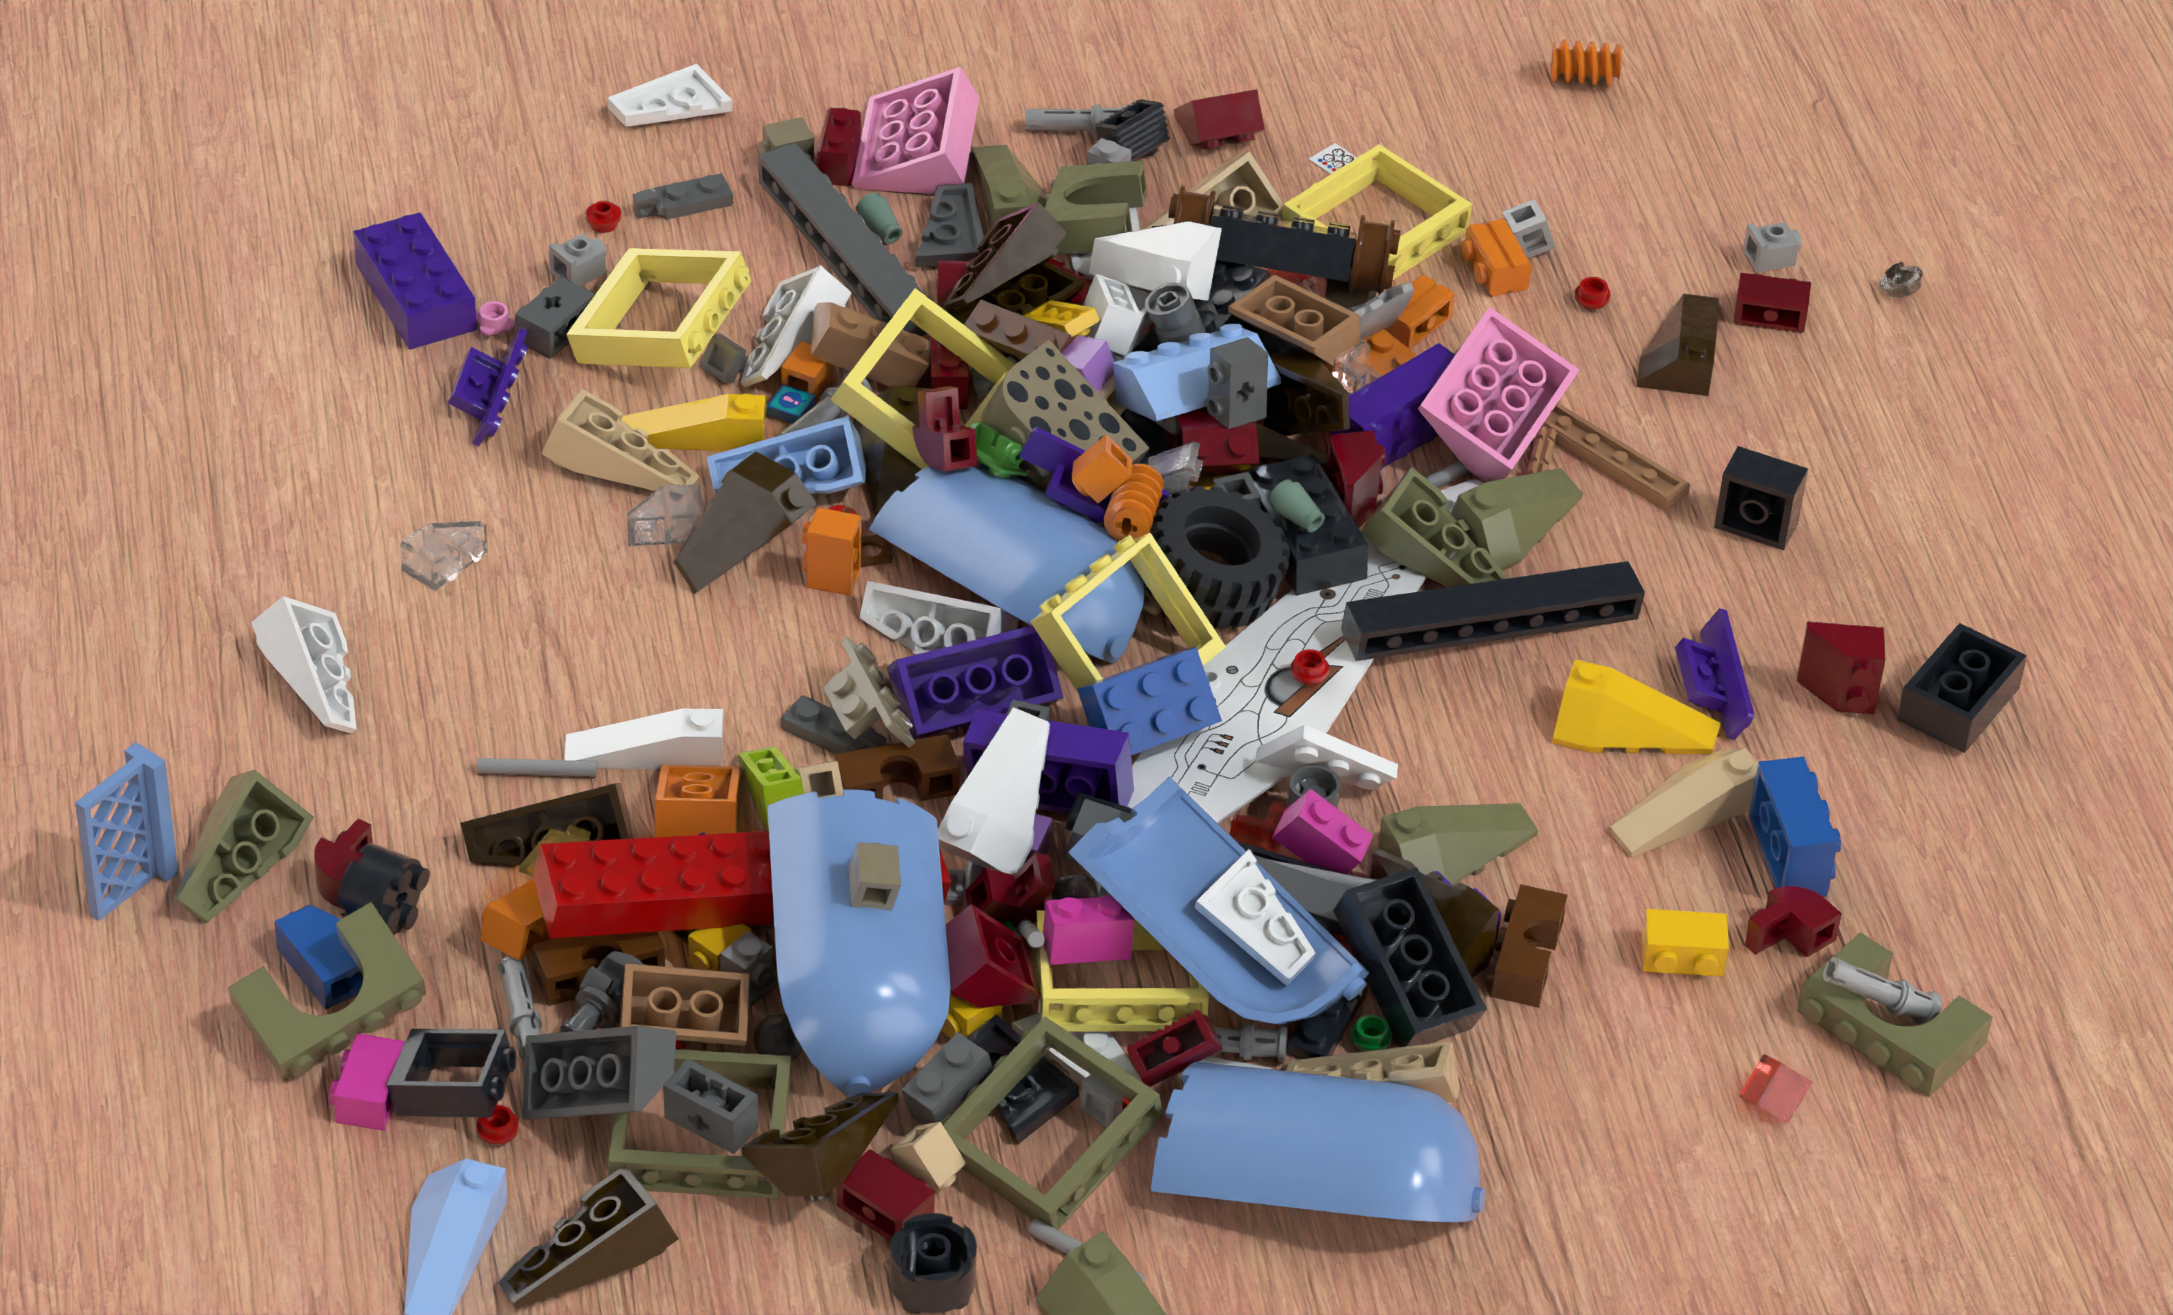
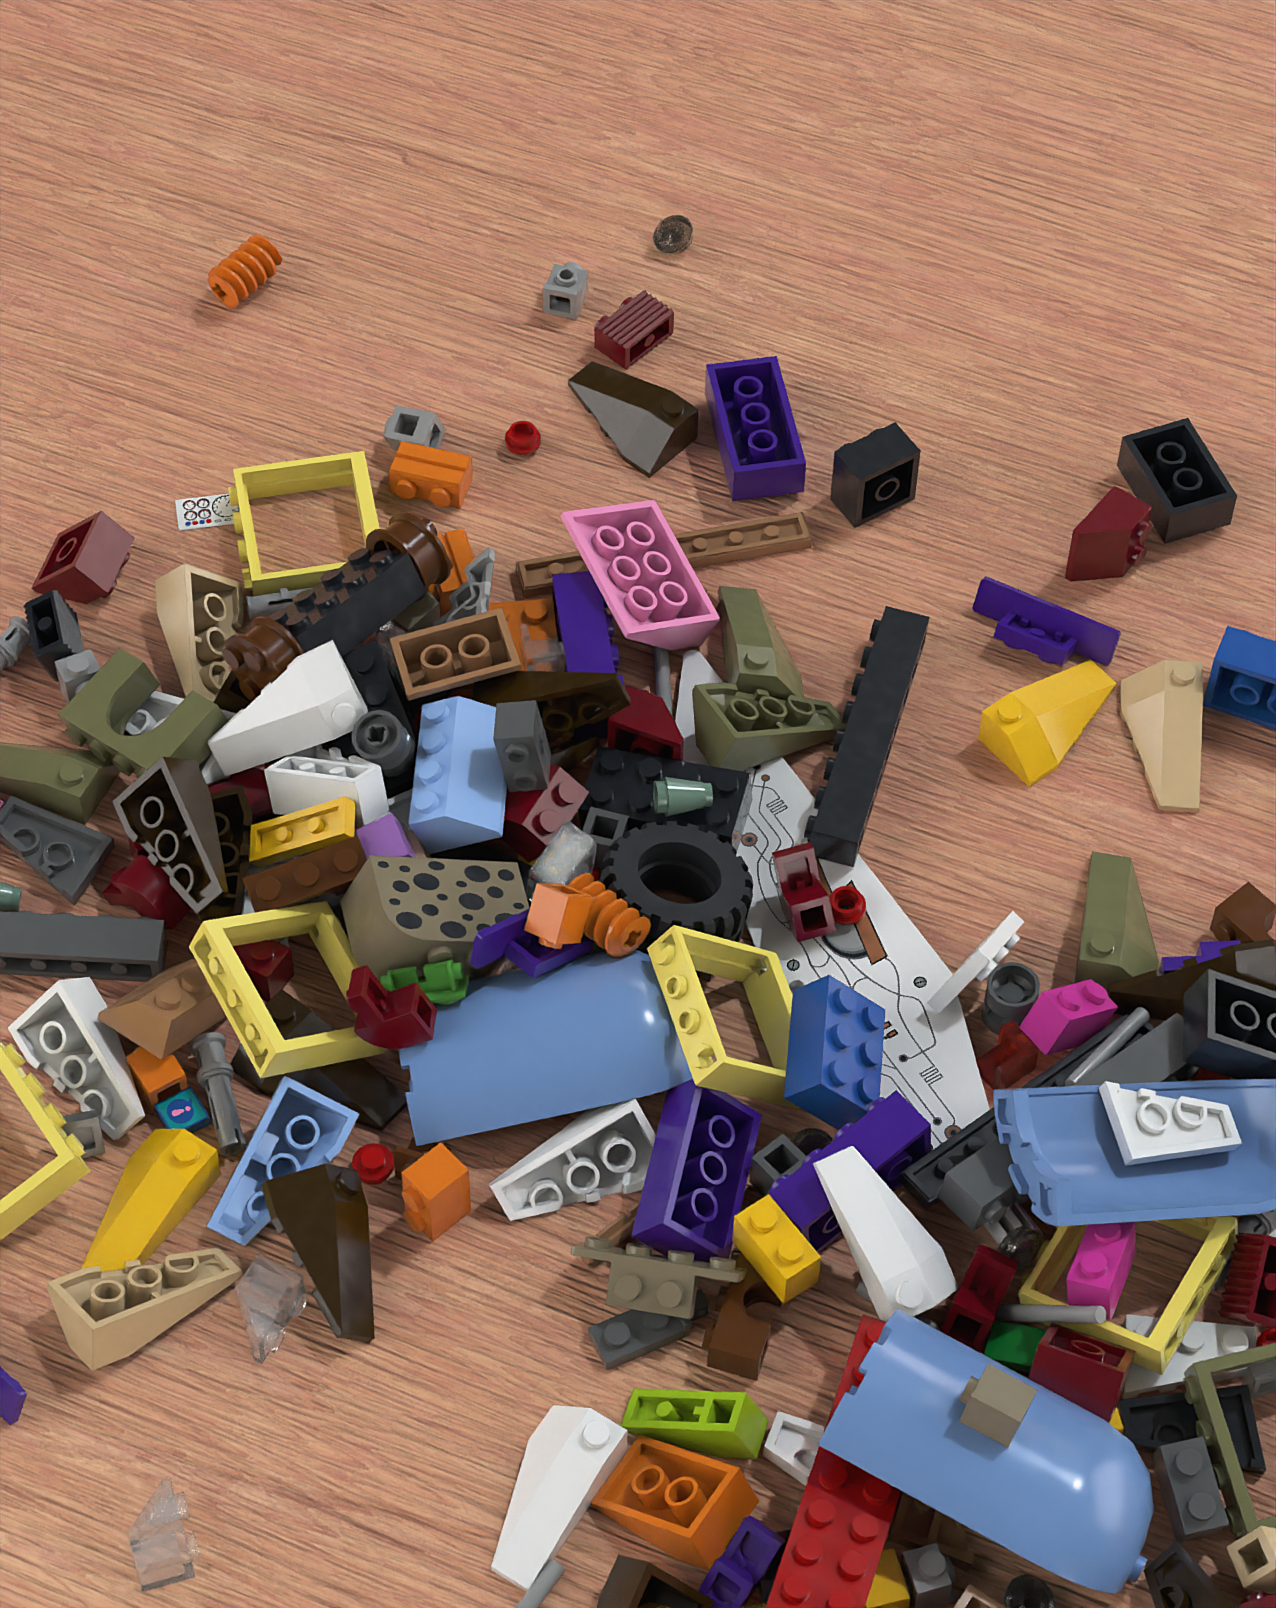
camera: 55 degrees left, 10 degrees up
(821, 778) = (732, 1373): tan brick -> none
(938, 743) = (776, 1249): none -> yellow brick
(1294, 629) = (801, 893): none -> dark red brick
(1736, 408) = (755, 428): none -> dark purple brick

